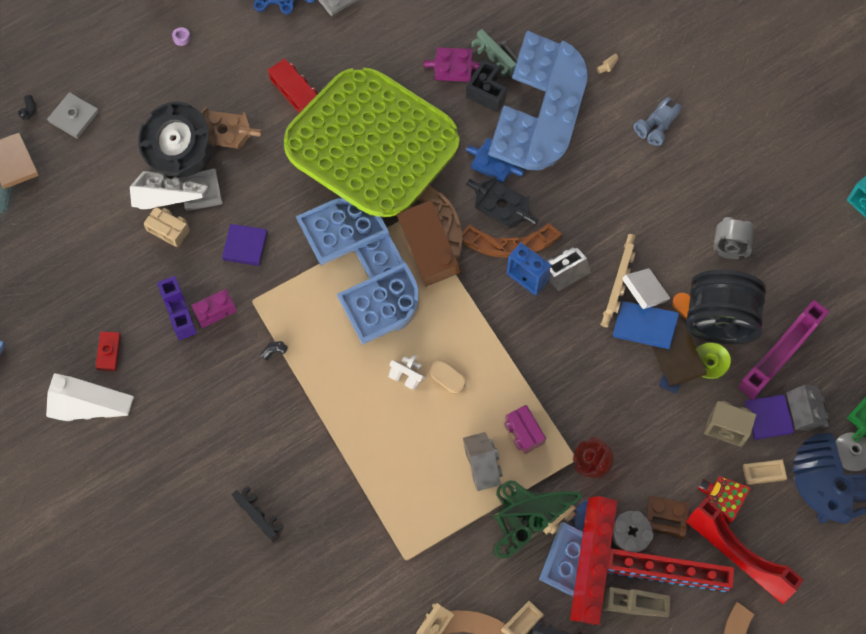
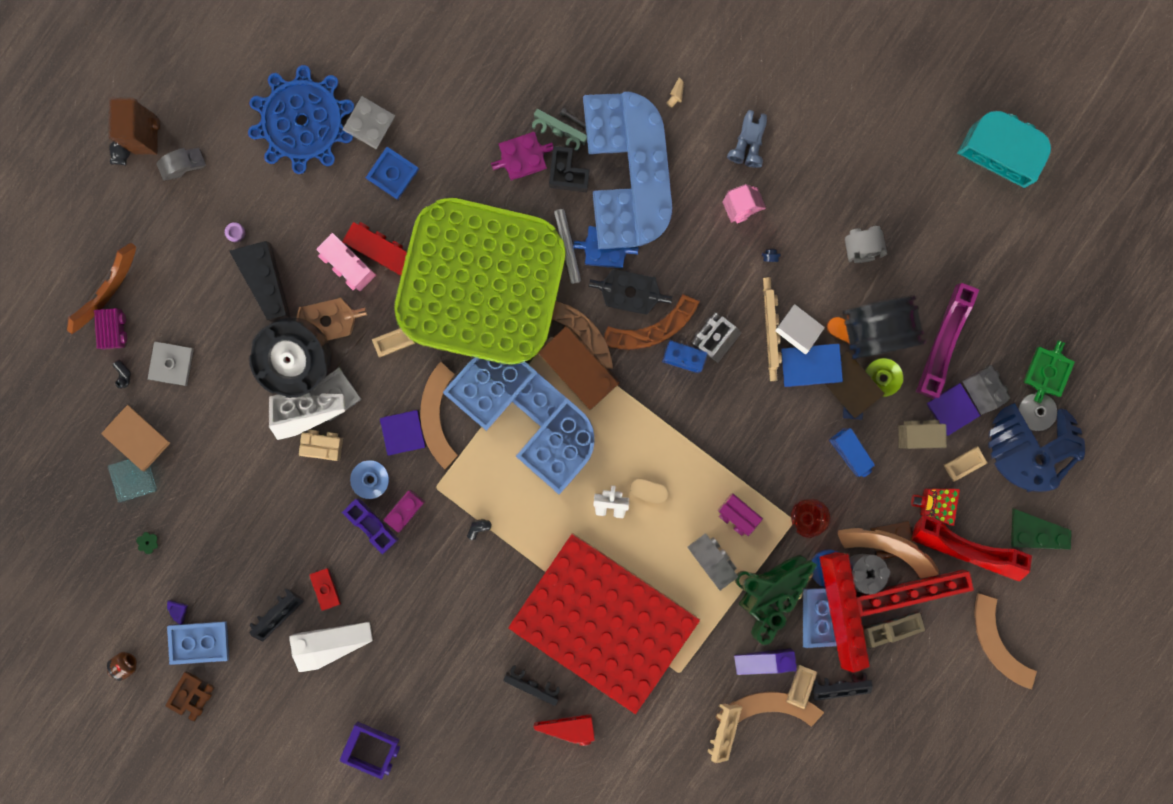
camera: 25 degrees left, 20 degrees up
(37, 68) = (110, 328): none -> magenta brick
(51, 355) = (275, 615): none -> black plate
(52, 39) = (118, 272): none -> dark orange tile
(62, 497) = (365, 766): none -> dark purple window
(187, 71) = (263, 278): none -> black wedge
(192, 263) = (360, 483): none -> medium blue dish
(263, 90) = (345, 263): none -> bright pink wedge
(273, 168) = (391, 342): none -> tan tile
(276, 241) = (430, 415): none -> medium nougat tile
(279, 572) = (572, 729): none -> red slope
(335, 37) = (392, 173): none -> blue plate
(353, 483) = (604, 623): none -> red plate
(461, 151) = (569, 250): none -> light grey axle
(496, 583) = (766, 662): none -> slope
(633, 162) = (743, 202): none -> bright pink wedge
(643, 219) = (771, 255): none -> dark blue plate
(656, 414) = (852, 452): none -> blue slope
(664, 513) = (893, 544): none -> medium nougat tile
(818, 567) = (1037, 533): none -> dark green wing

